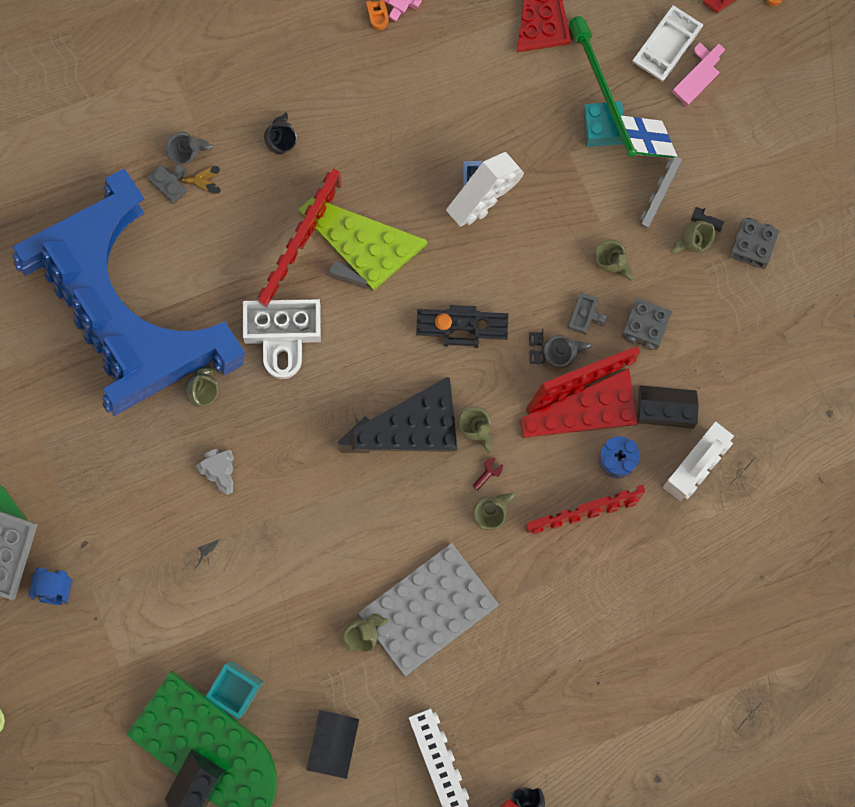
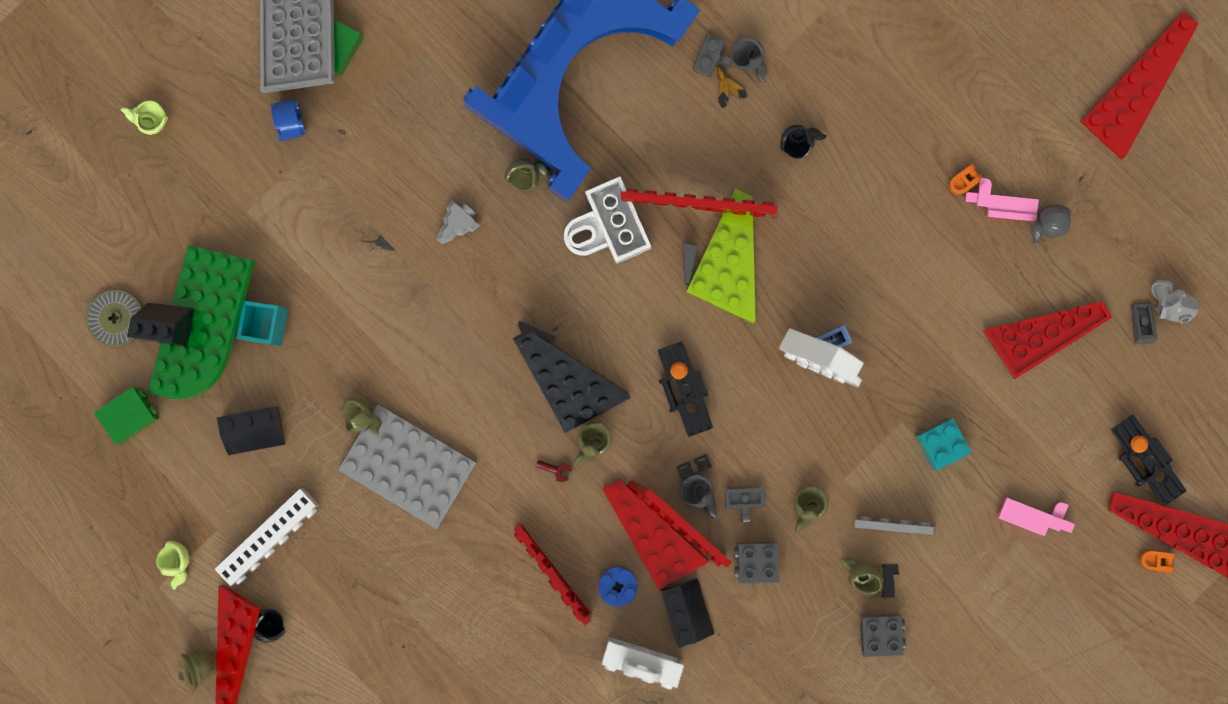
camera: 75 degrees right, 10 degrees up
(492, 511) = (518, 488): olive hair -> none
(638, 134) = (943, 483): flag -> none
(667, 43) = (1054, 474): white slope -> none

